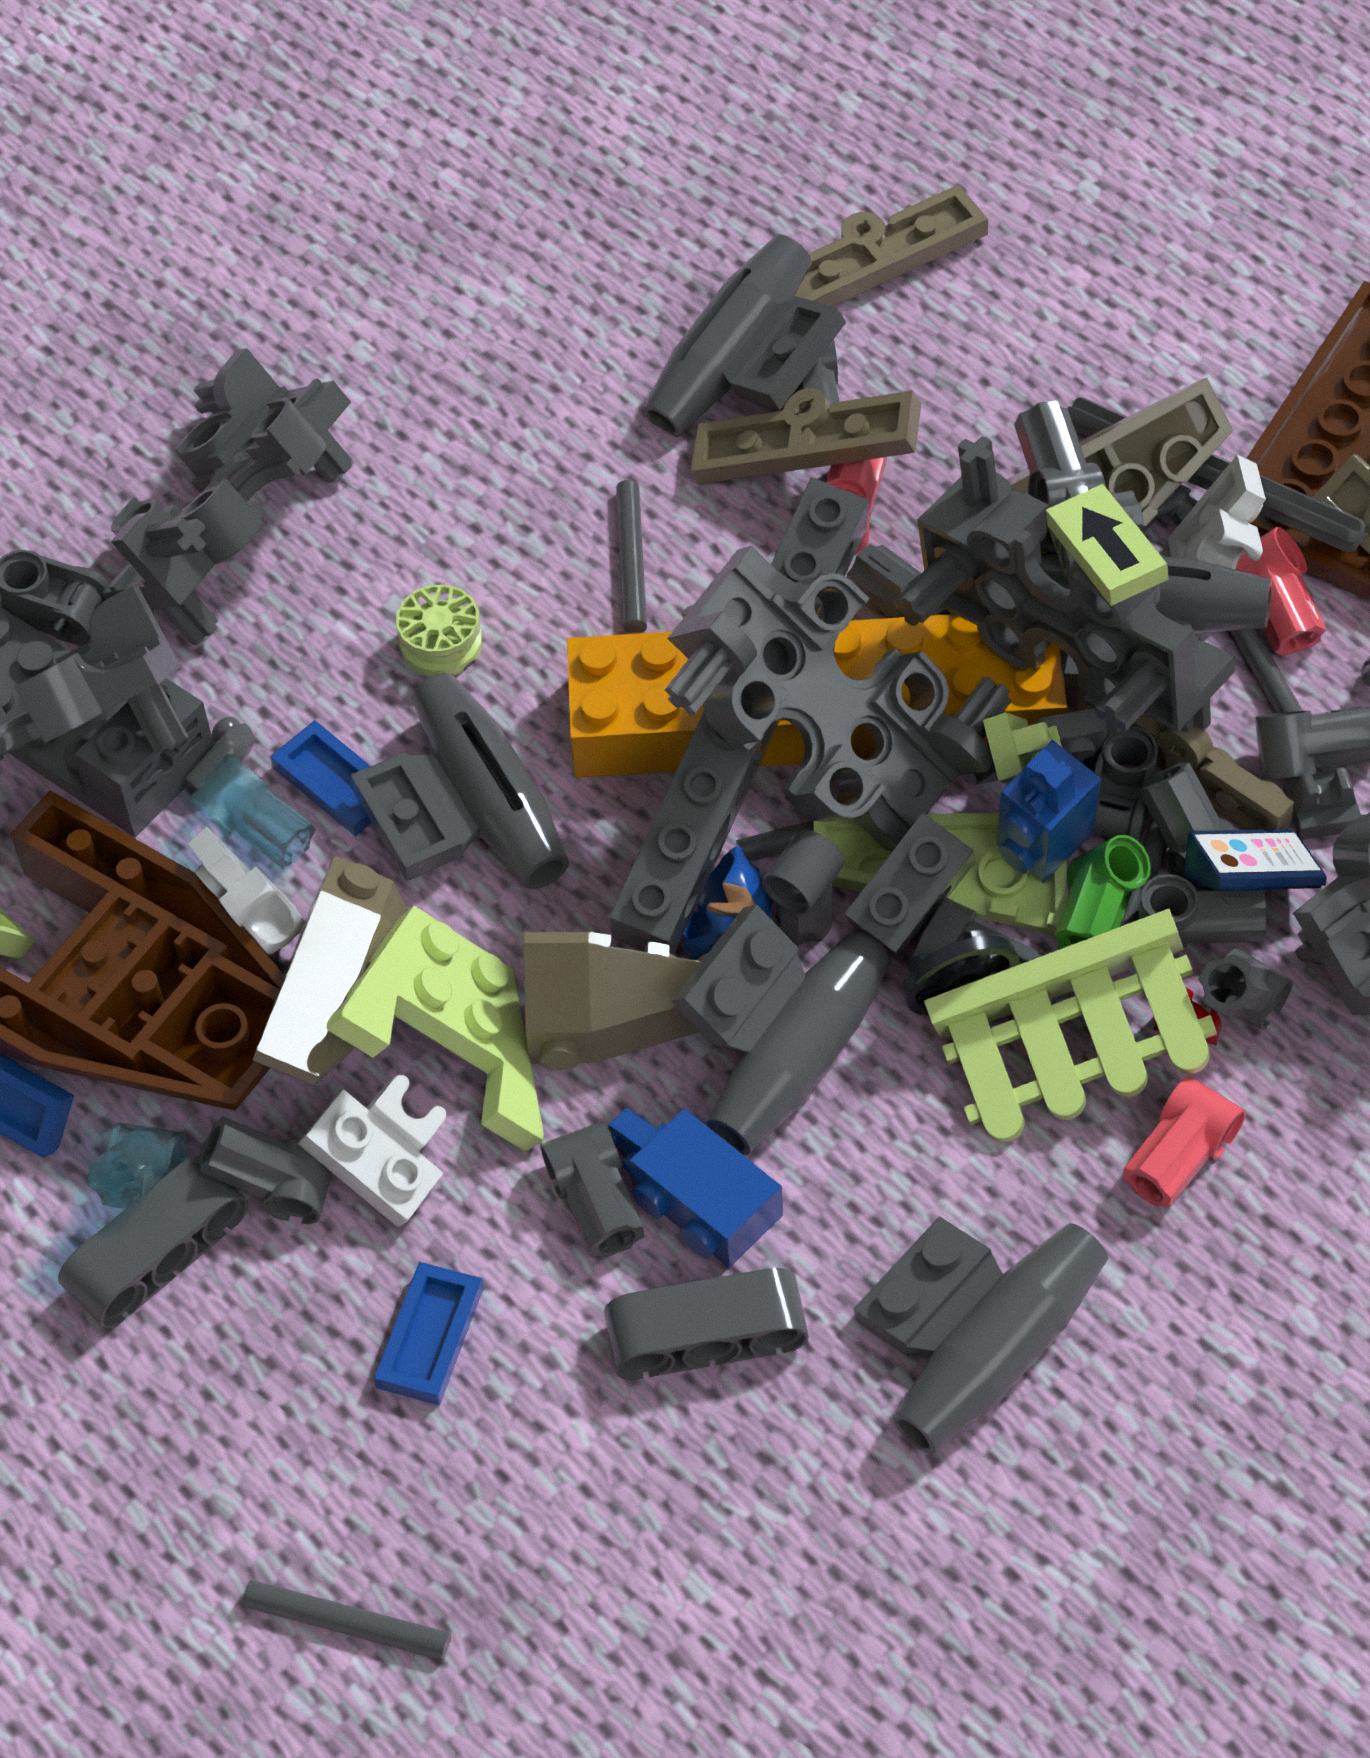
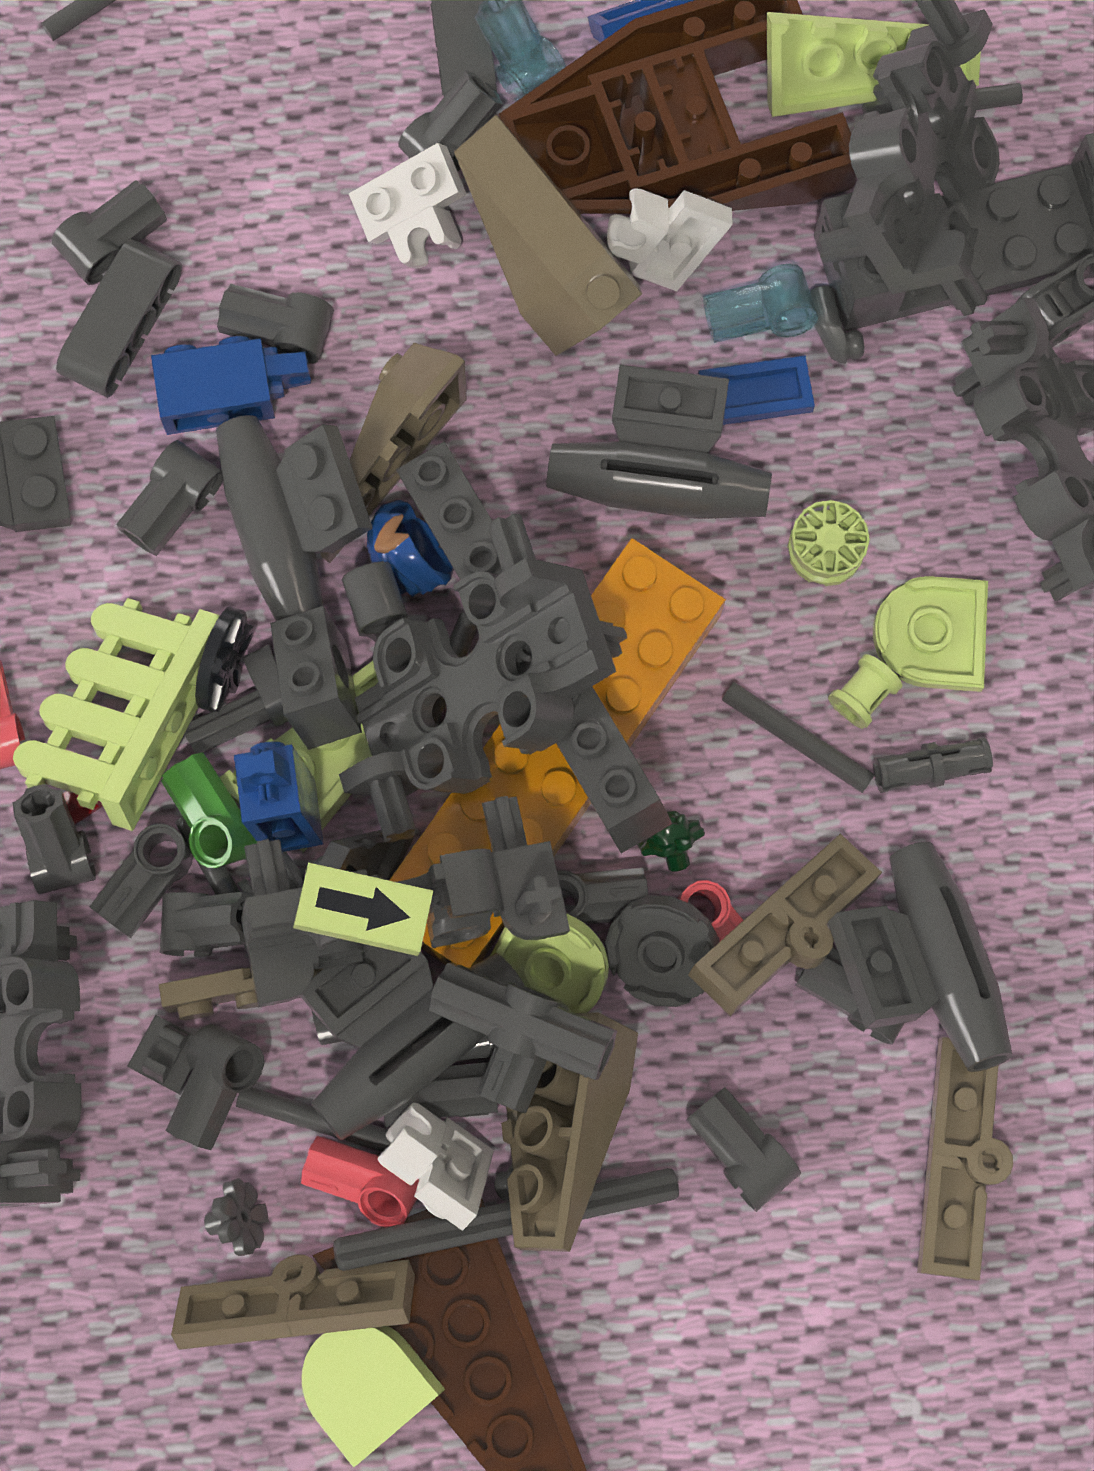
camera: 120 degrees right, 20 degrees up
(429, 1333) = (262, 159): blue tile -> none
(451, 522) = (935, 632): none -> yellowish green tile
(458, 1000) = (490, 308): yellowish green wing -> none
(548, 433) = (932, 764): none -> dark grey pin
(551, 527) = (865, 691): none -> yellowish green bush
(639, 1404) = (94, 239): none -> dark grey piece
(827, 1149) = (176, 489): none -> dark grey piece
(895, 505) = (656, 946): none -> dark grey tile
(1005, 376) = (750, 1158): none -> dark grey piece
(1016, 743) = (337, 809): yellowish green tile -> none
(1251, 860) = (139, 935): slope -> none

